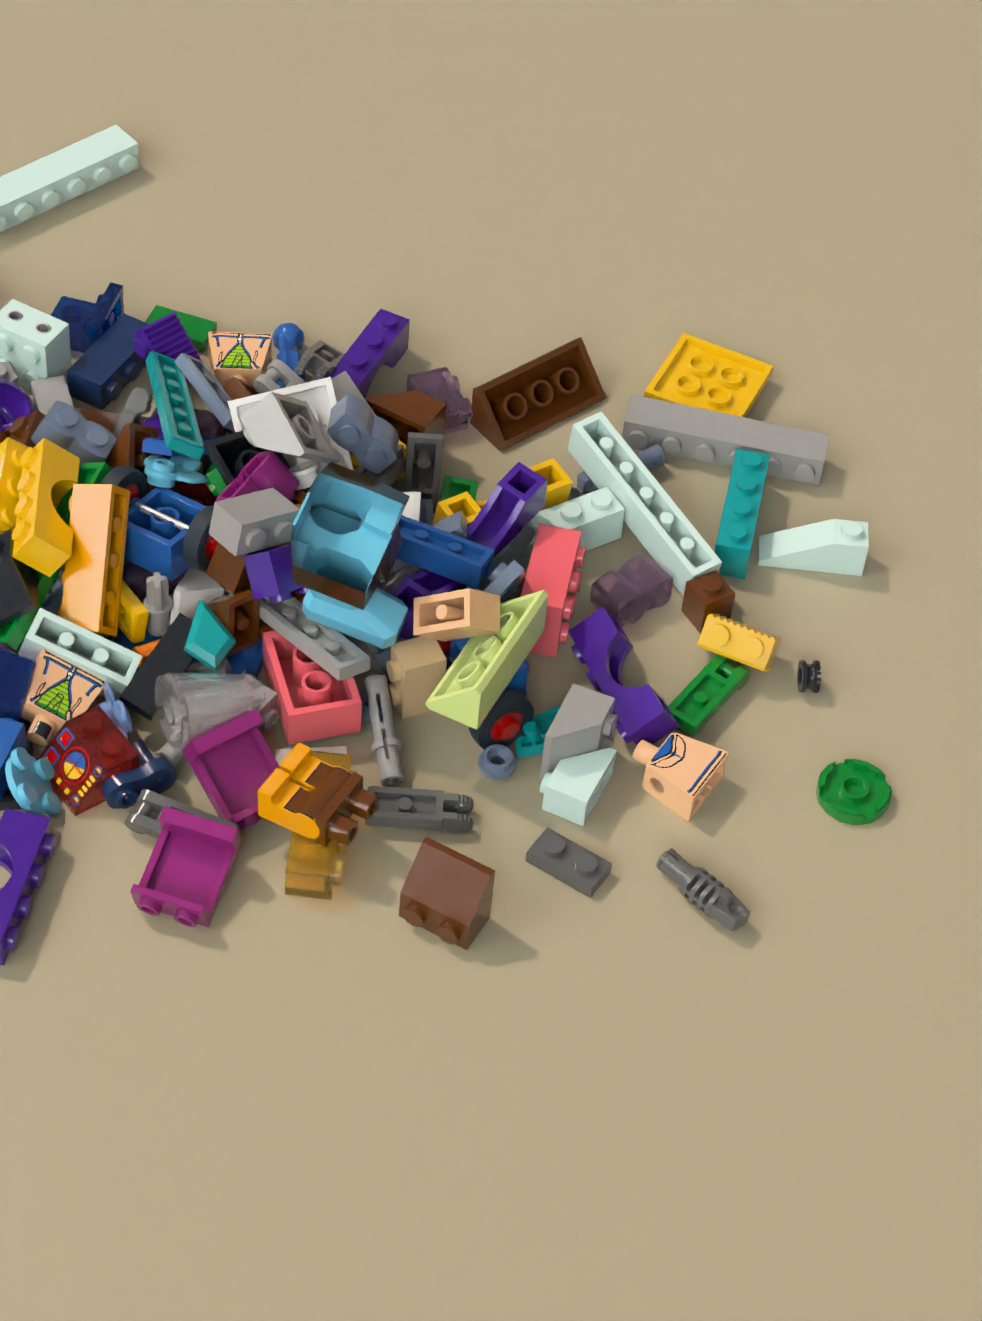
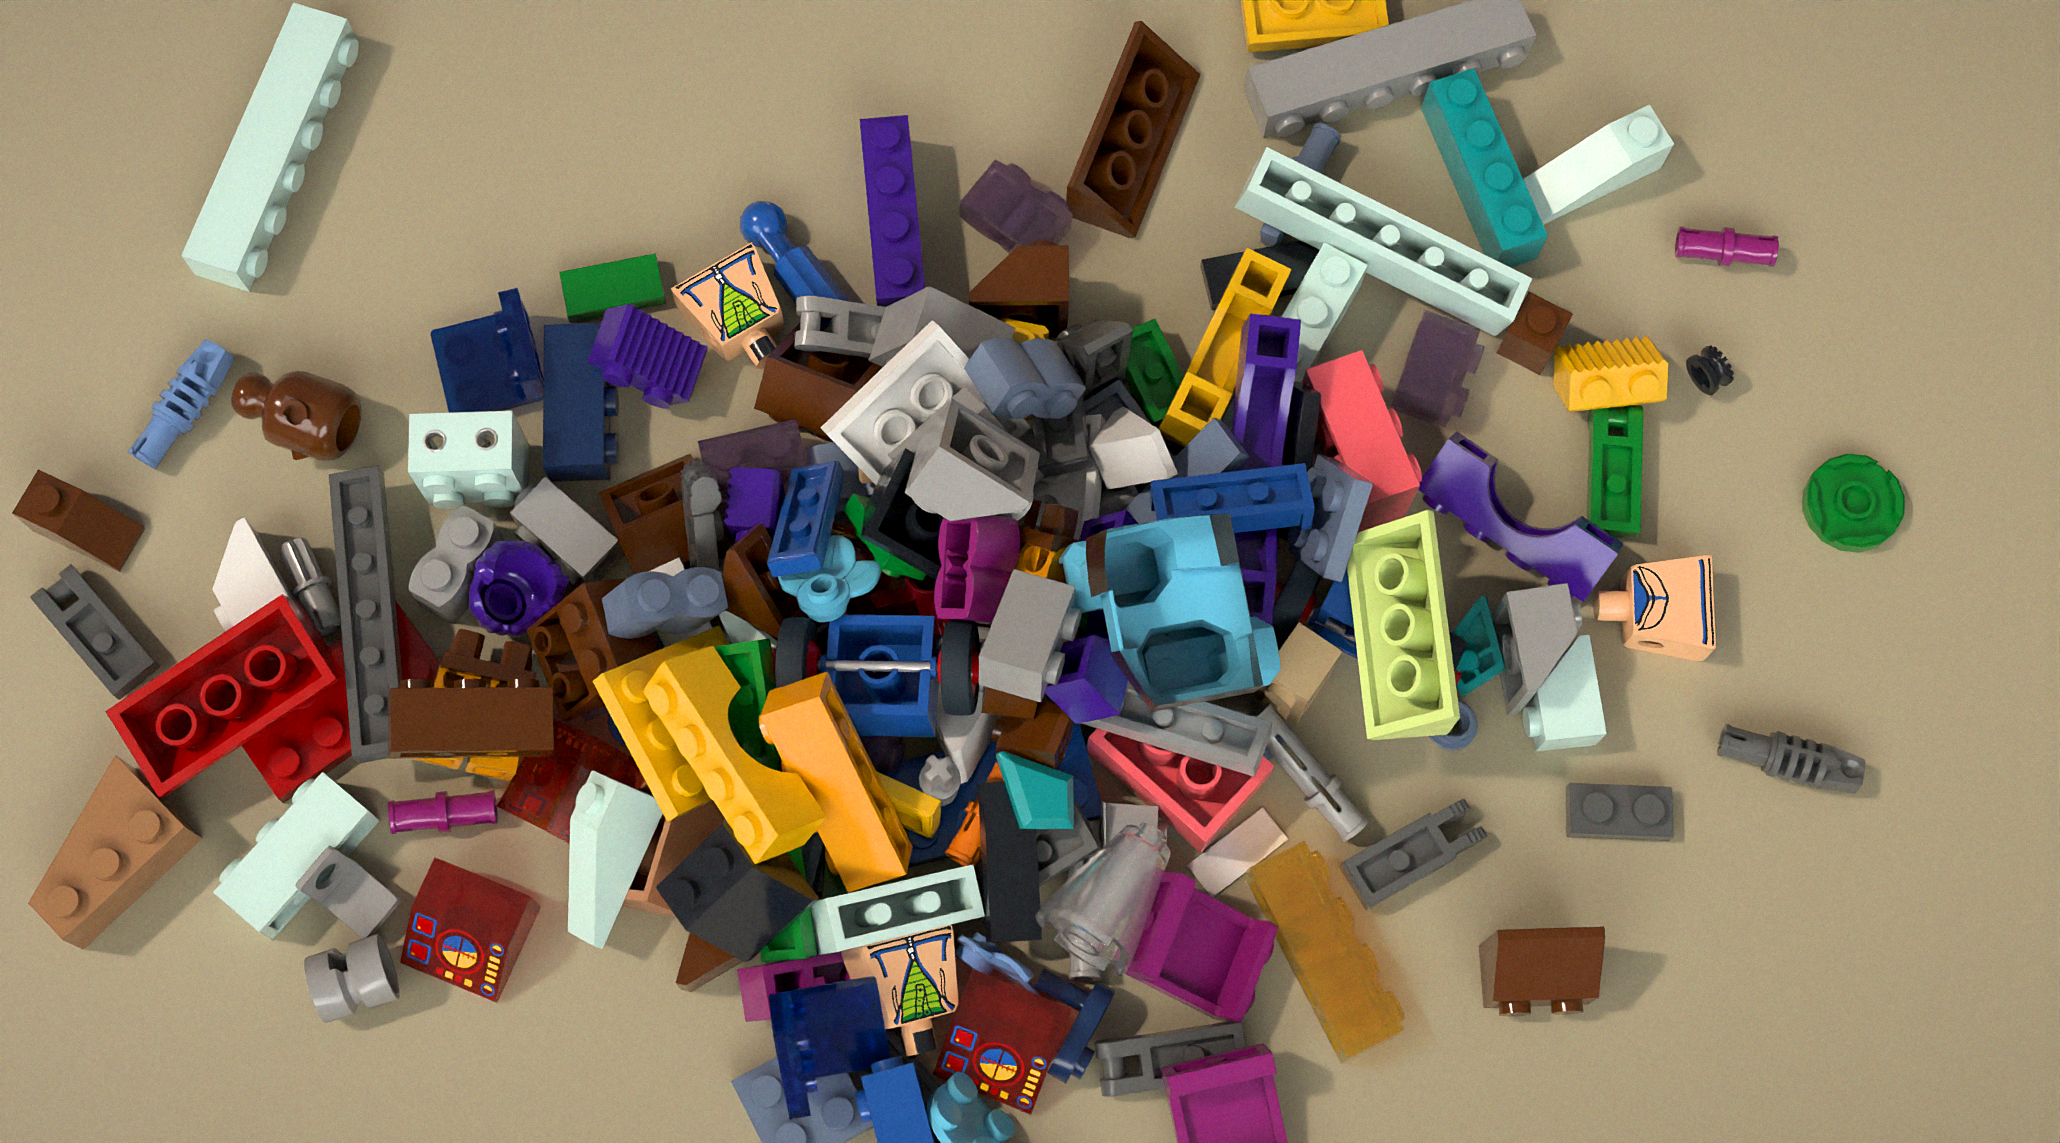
camera: 30 degrees left, 25 degrees up
(174, 406) = (754, 472): teal tile -> none
(207, 387) = (759, 398): sand blue tile -> none
(315, 798) = (1342, 952): hips -> none
(319, 360) = (844, 249): dark grey hinge -> none
(456, 615) = (1340, 604): light nougat brick -> none
(870, 625) = (1726, 246): none -> magenta pin

